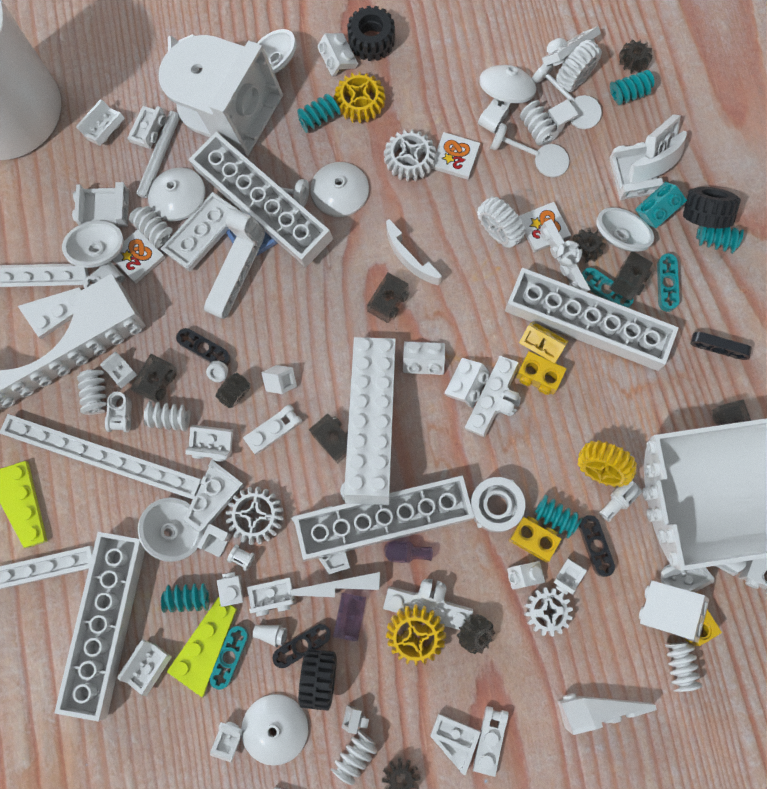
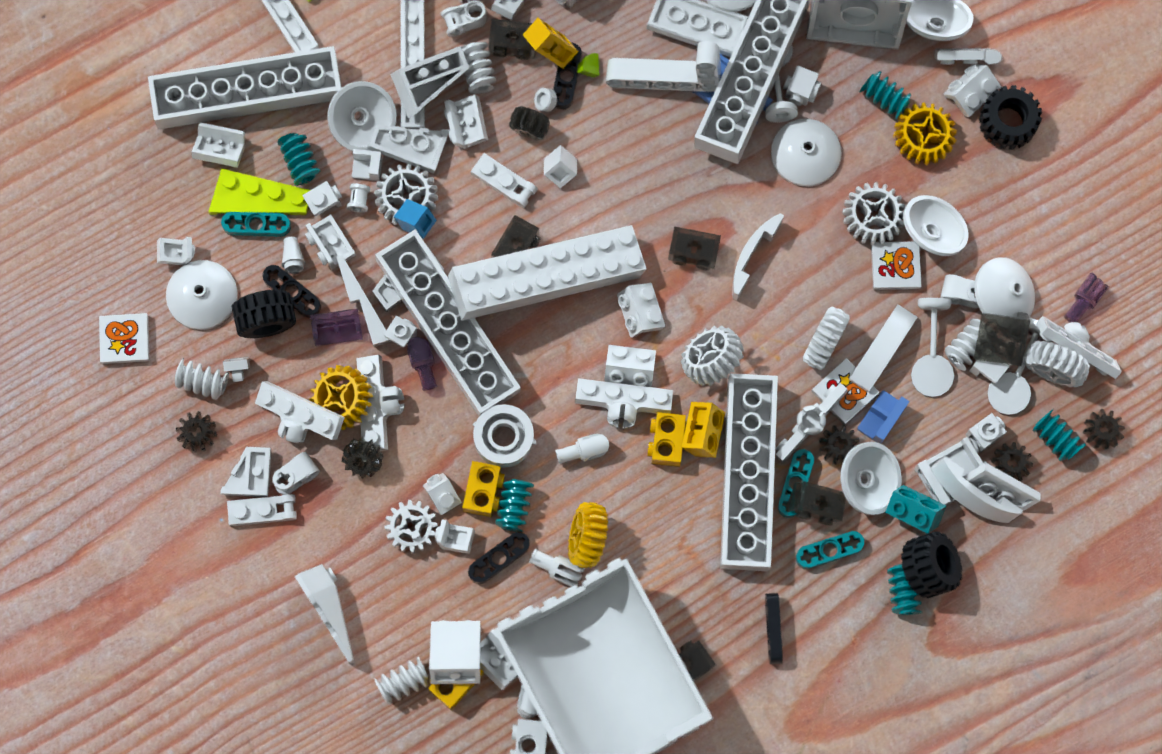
camera: 65 degrees right, 0 degrees up
(161, 460) = (425, 79): none -> white wedge
(171, 347) = (550, 43): none -> yellow brick
(202, 326) = (589, 65): none -> lime tile
(280, 514) = (415, 216): none -> dark azure panel
(286, 171) = (802, 86): none -> white brick
(310, 46) = (969, 55): none -> white hinge
(376, 561) = (401, 331): none -> white bracket
(418, 678) = (298, 414): none -> white plate
(438, 113) = (935, 225): none -> white dish
(467, 696) = (297, 472): none -> white piece
(493, 312) = (712, 355): none -> white gear
(522, 184) = (883, 348): none -> white slope
(527, 441) = (586, 449): none -> white arm
(529, 33) = (1086, 297): none -> clear purple arm
(548, 93) = (1002, 338): none -> clear smoke bracket
(575, 205) = (882, 416): none -> medium blue panel
(613, 135) = (987, 432): none -> white brick
(640, 126) = (1012, 452): none -> clear smoke gear

